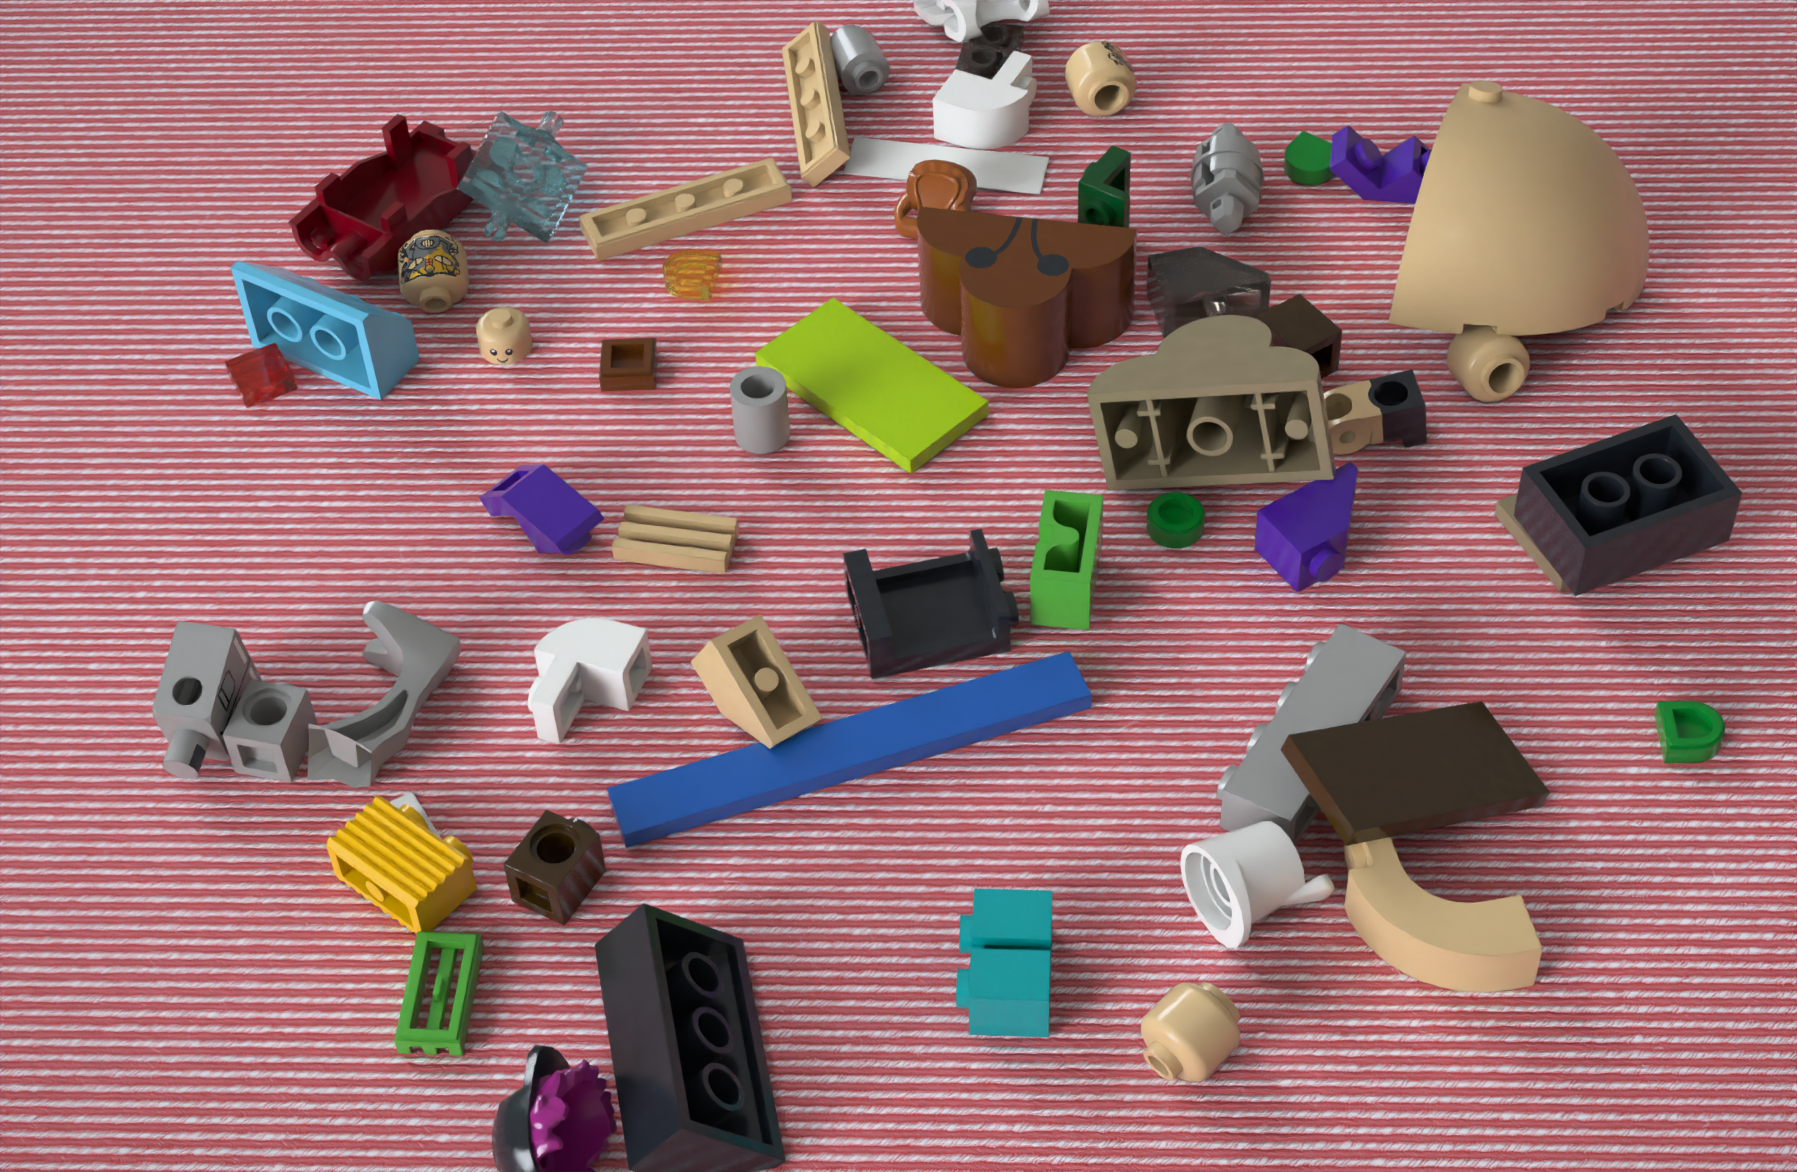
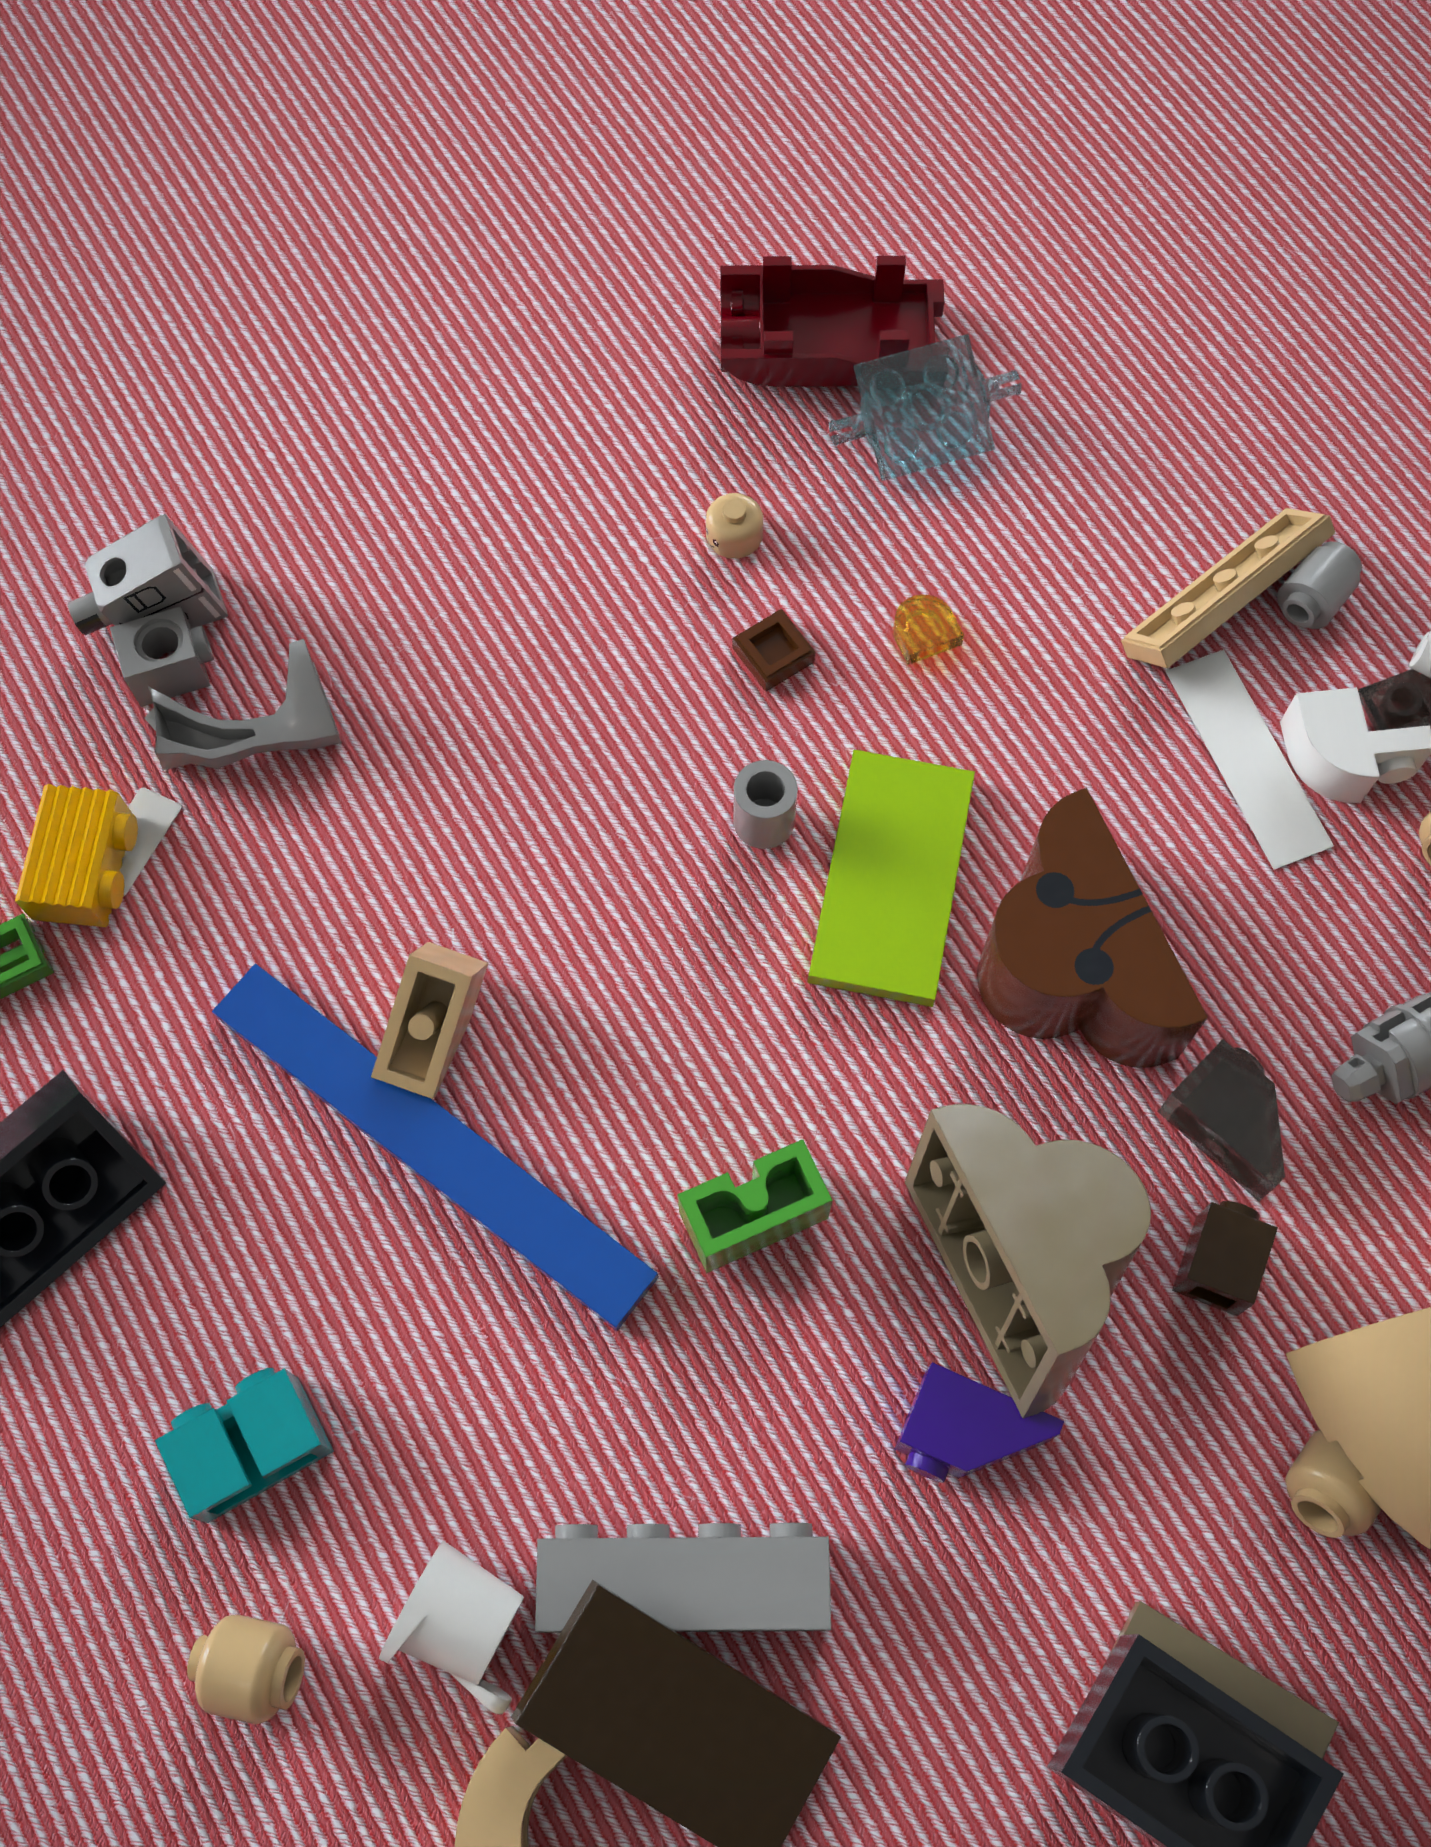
camera: 55 degrees right, 20 degrees up
(261, 375) = (558, 370): clear red tile -> none
(325, 328) = (631, 379): medium azure slope -> none
(433, 271) = (761, 416): head -> none
(545, 508) = (533, 698): dark purple slope -> none
(555, 866) = (122, 962): dark brown brick -> none
(589, 662) = (375, 850): white brick -> none
(678, 532) = (568, 787): tan tile -> none
(685, 209) = (1009, 567): tan tile -> none
(930, 609) = (632, 1106): black panel -> none
(934, 185) = (1190, 776): dark orange piece -> none
(1106, 190) = (1255, 954): dark green bracket -> none
(1175, 520) = (905, 1272): green tile -> none
(1376, 413) = (1173, 1396): leg -> none

